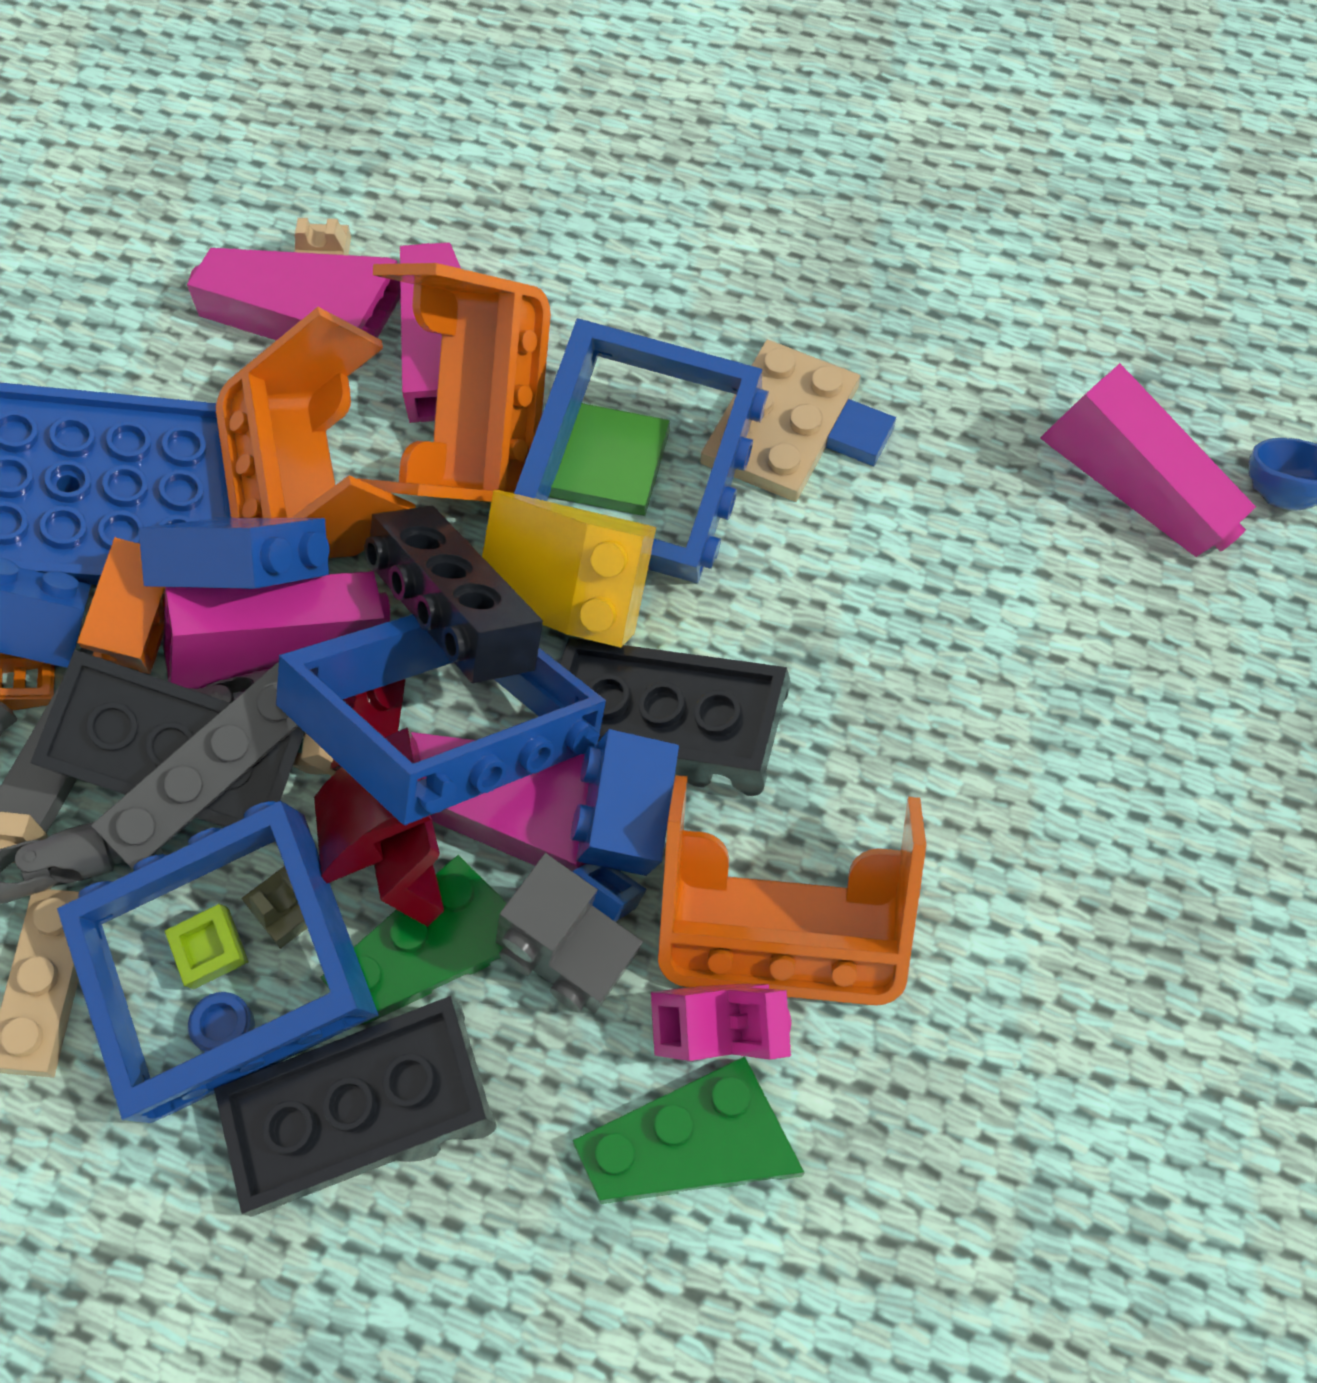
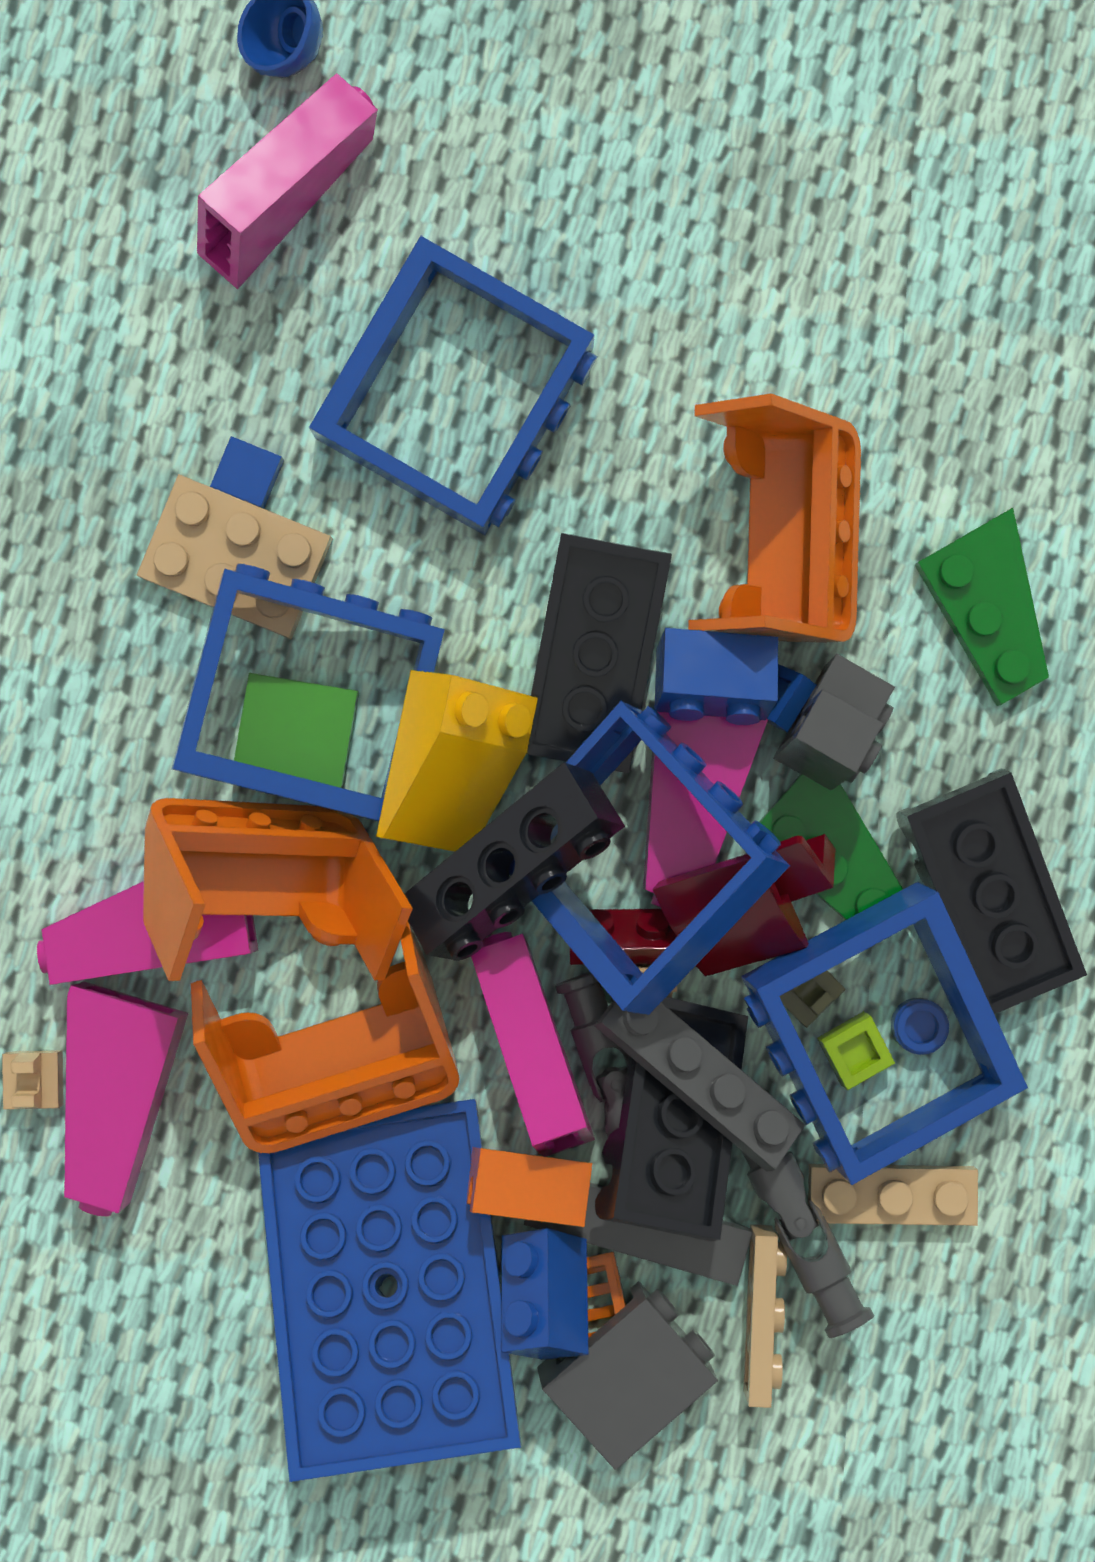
camera: 90 degrees left, 25 degrees up
(234, 552) = (487, 1084): blue brick -> none
(721, 1022) = (893, 580): dark pink brick -> none
(977, 534) = (378, 342): none -> blue window

